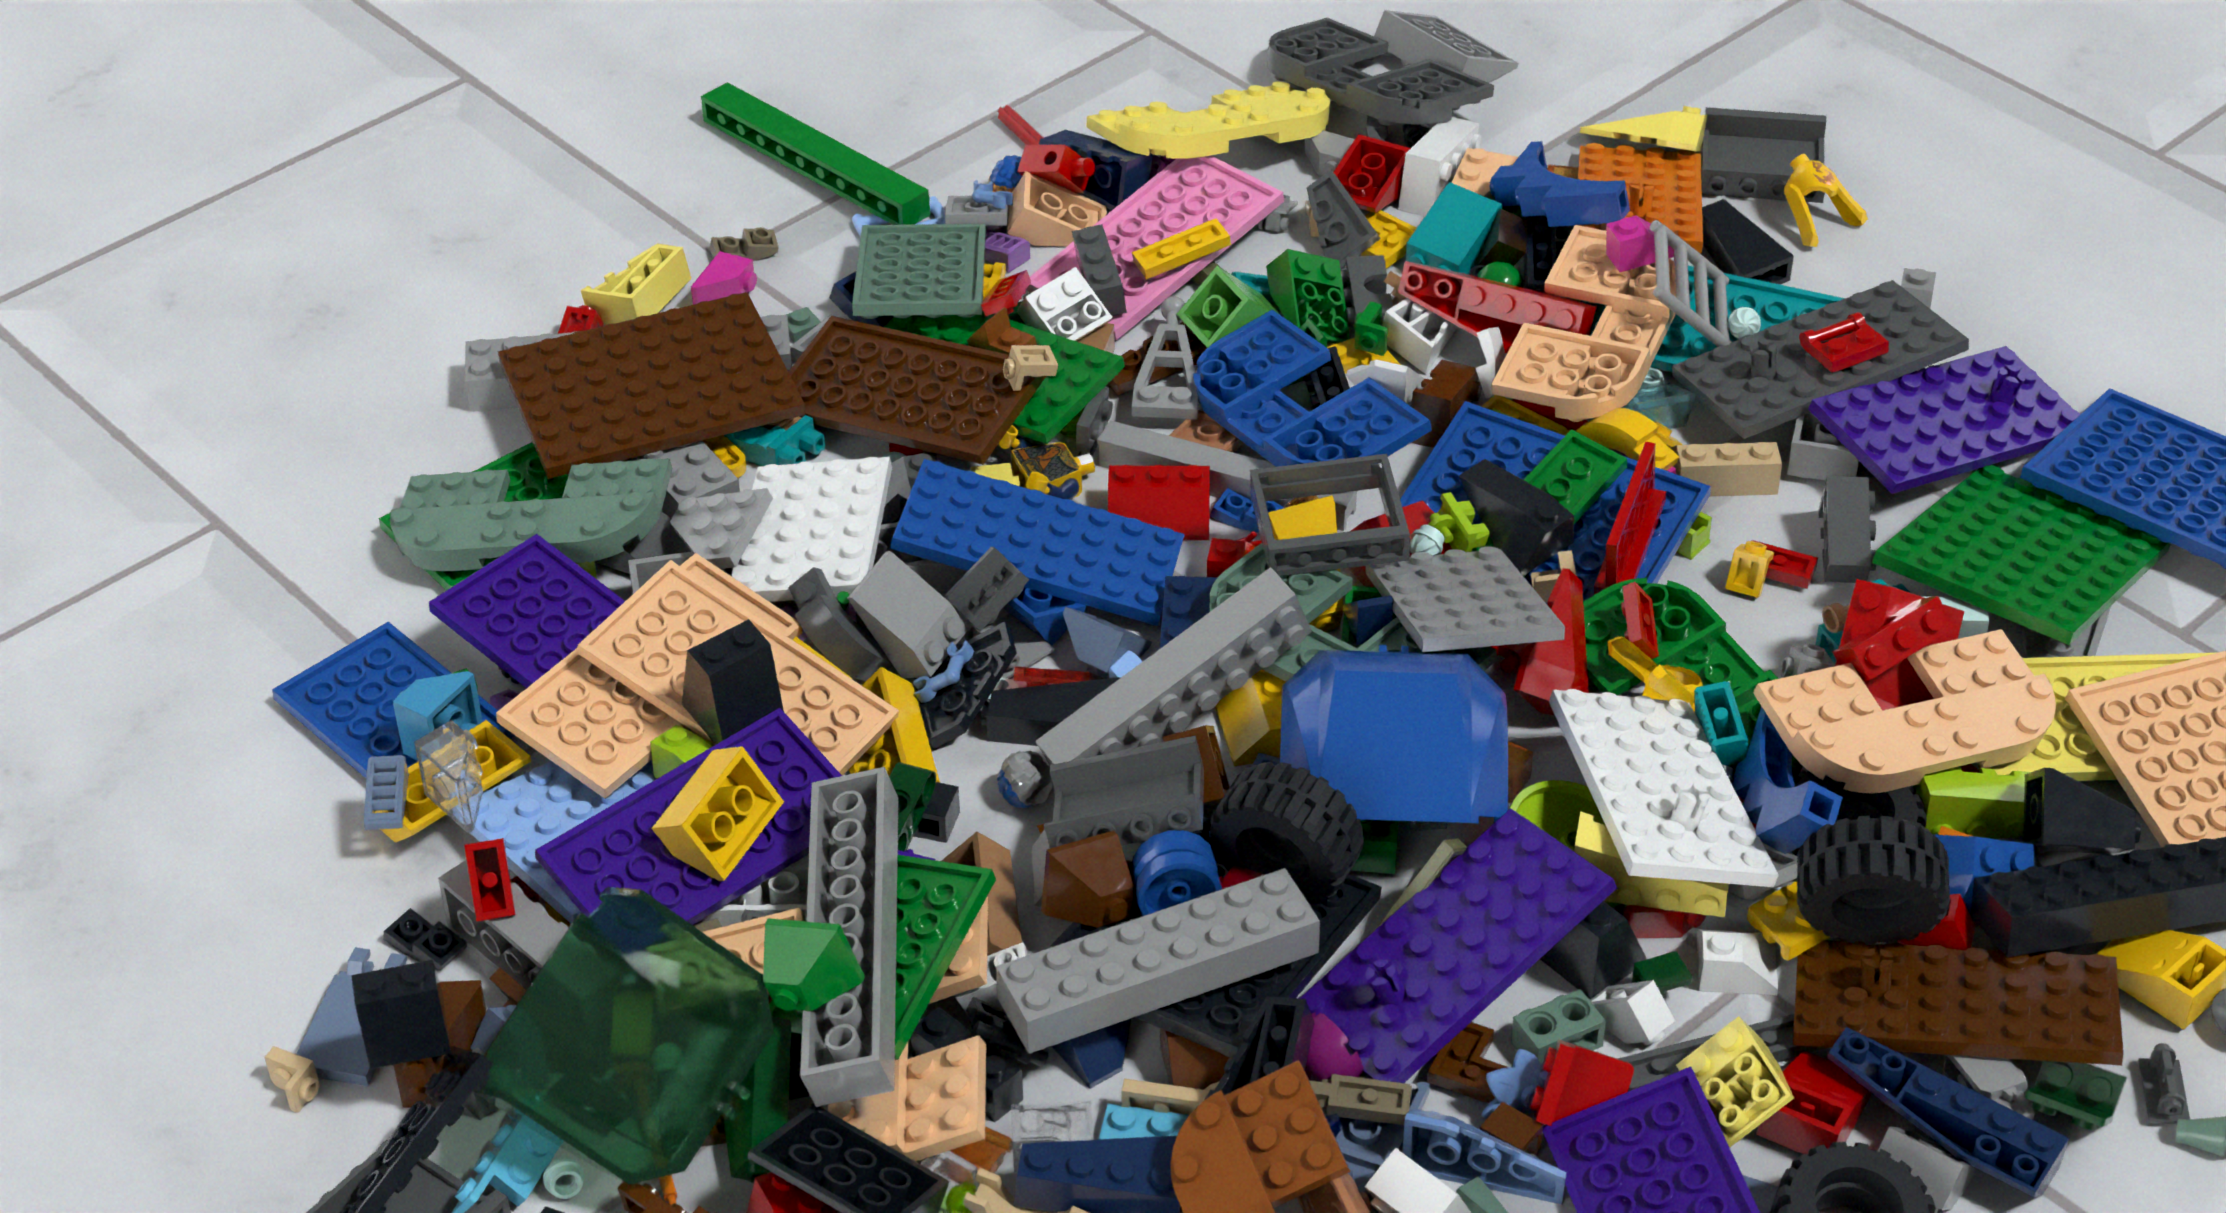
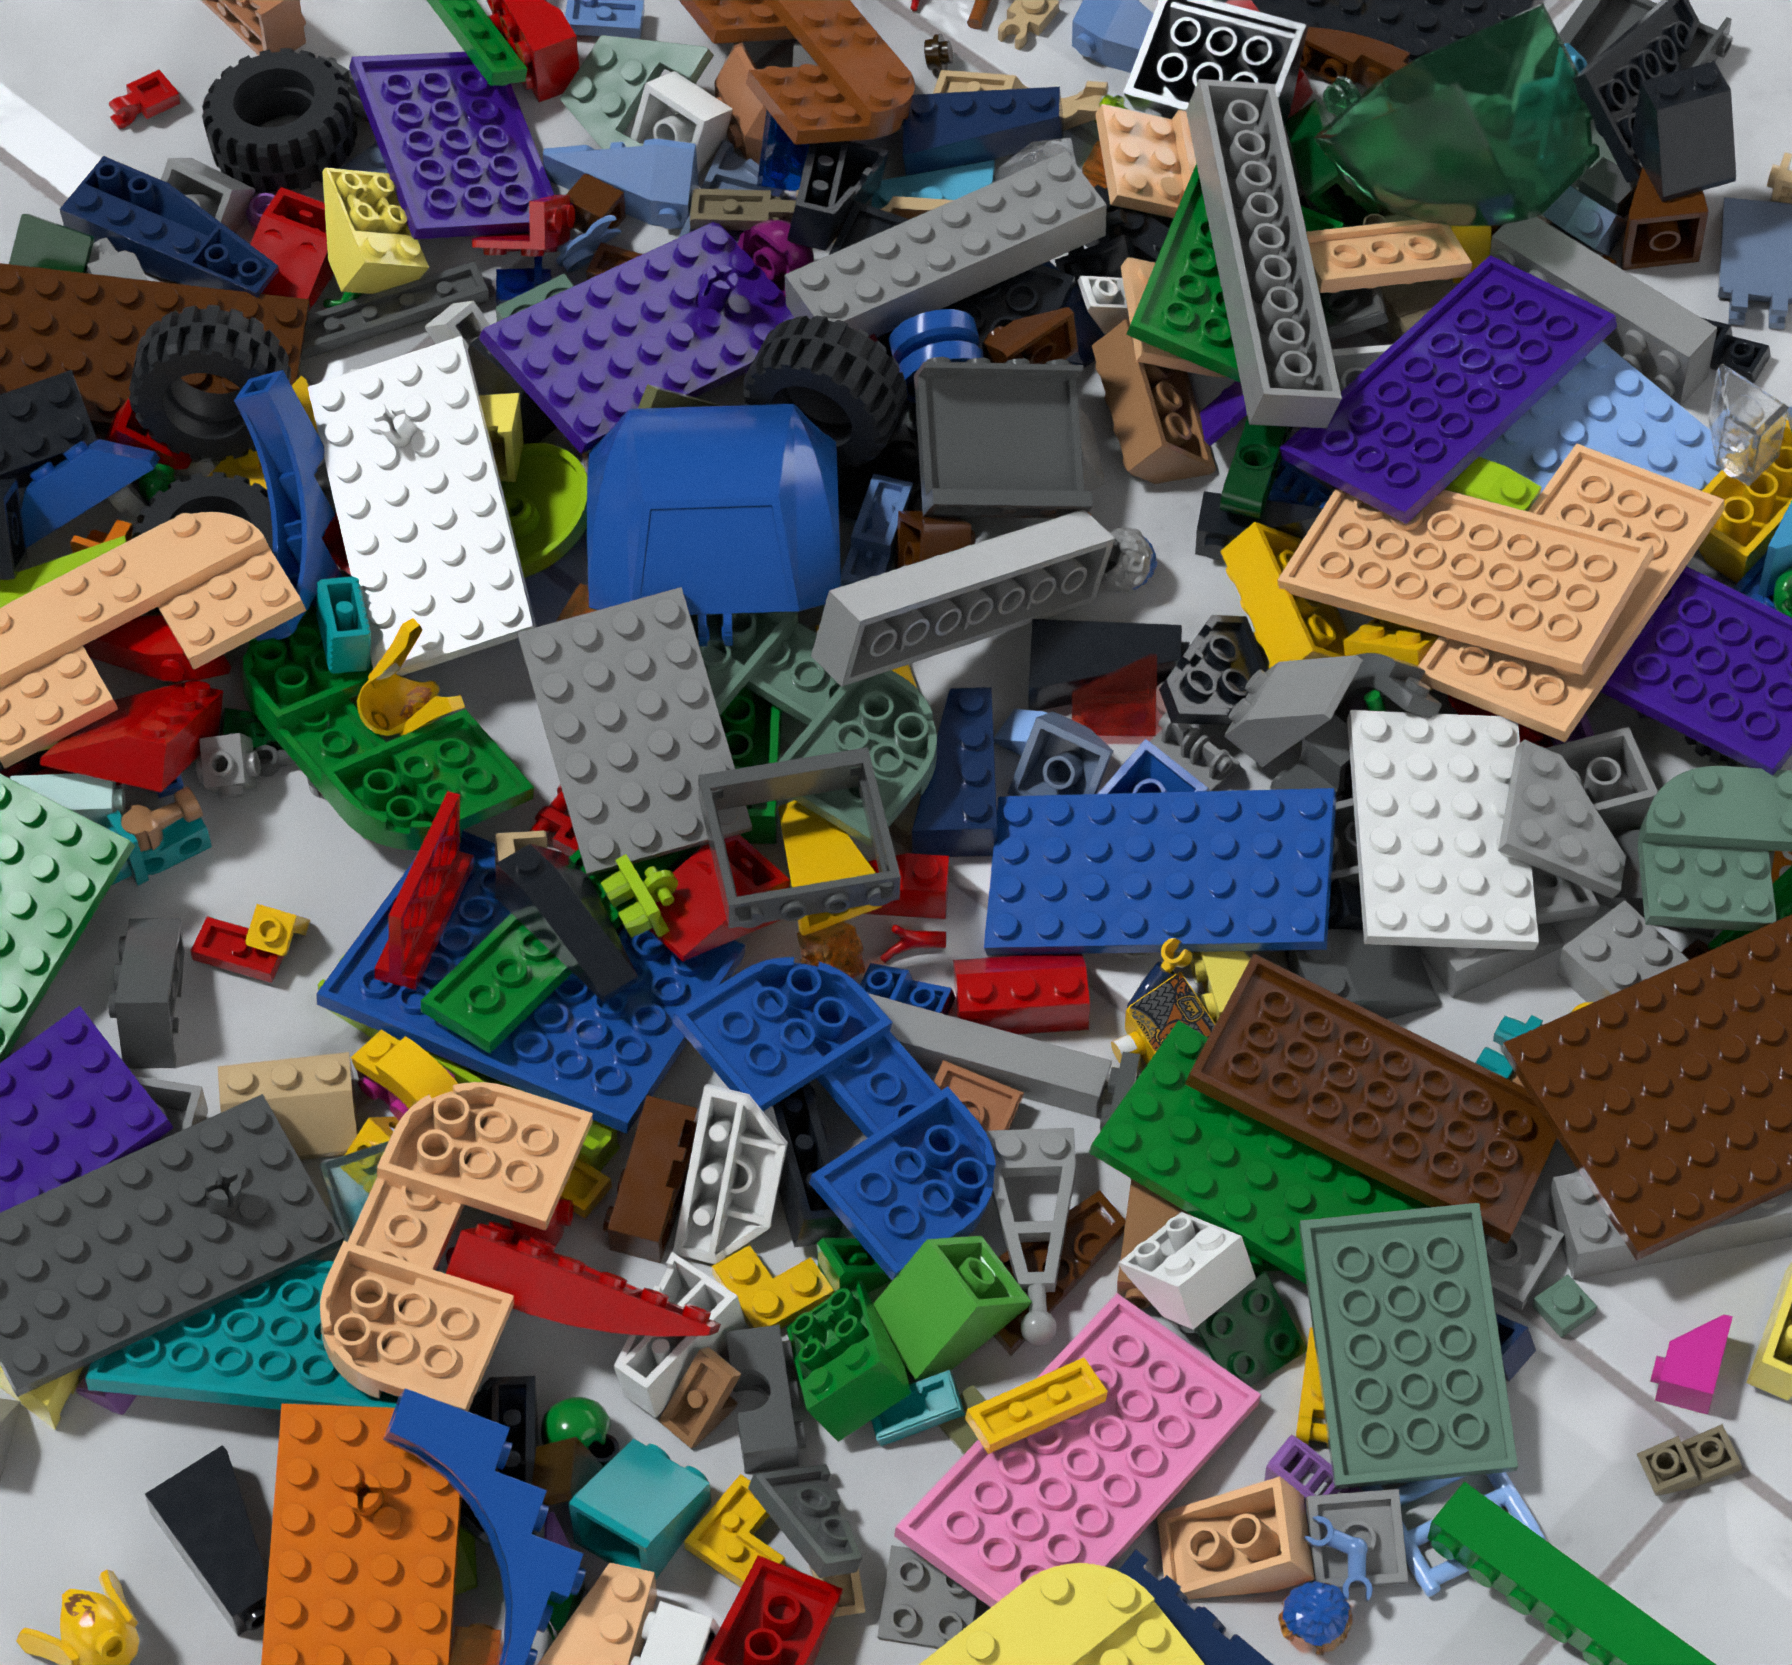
camera: 175 degrees right, 15 degrees up
(490, 879) = (1659, 306): red slope -> none
(719, 813) = (1438, 372): yellow slope -> none
(731, 681) = (1463, 500): black slope -> none
(807, 964) = (1282, 148): green slope -> none
(928, 687) = (1230, 667): medium blue arm -> none
(987, 588) = (1203, 754): dark grey bracket -> none
(999, 335) = (1266, 1177): dark orange slope -> none
(1006, 293) = (1275, 1299): red plate -> none
(1029, 361) = (1206, 1047): tan bracket -> none
(1057, 165) = (1244, 1586): red torso -> none
(1099, 267) = (1162, 1382): dark grey arch -> none
(1368, 330) = (764, 1281): green bracket -> none
(1368, 617) = (746, 732): dark blue slope -> none
(1427, 540) = (679, 858): light aqua plate -> none
(1494, 354) = (591, 1231): white slope -> none
(1558, 662) = (512, 730): red wedge -> none
(1631, 243) = (375, 1331): dark pink slope -> none
(1640, 619) = (424, 752): red plate -> none
(1681, 303) = (294, 1267): light grey bar -> none
(1744, 322) = (237, 1294): light aqua plate -> none
(1847, 350) = (105, 1205): red plate -> none
(1905, 634) = (101, 699): red arch -> none

